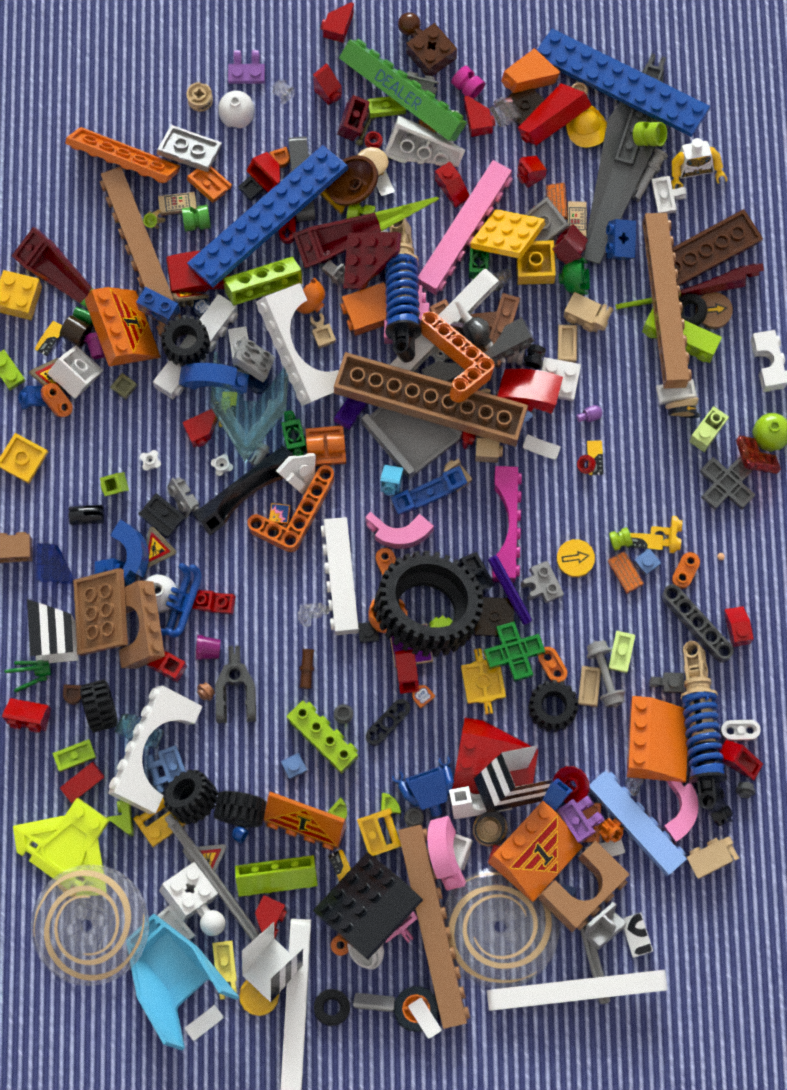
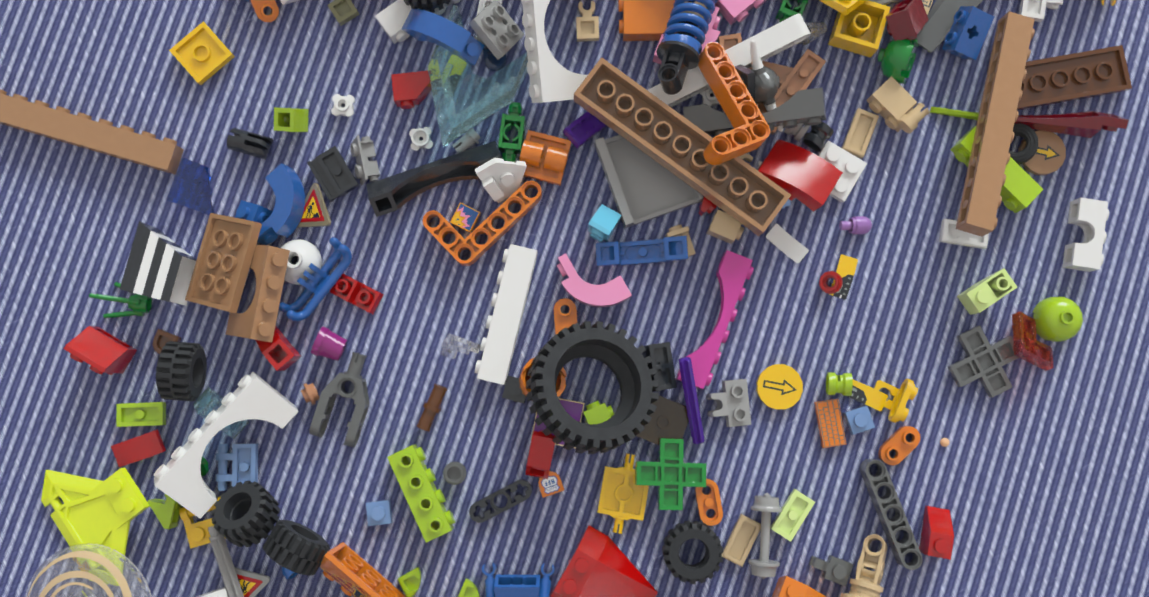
camera: 20 degrees right, 10 degrees up
(683, 408) = (968, 257): piece -> none

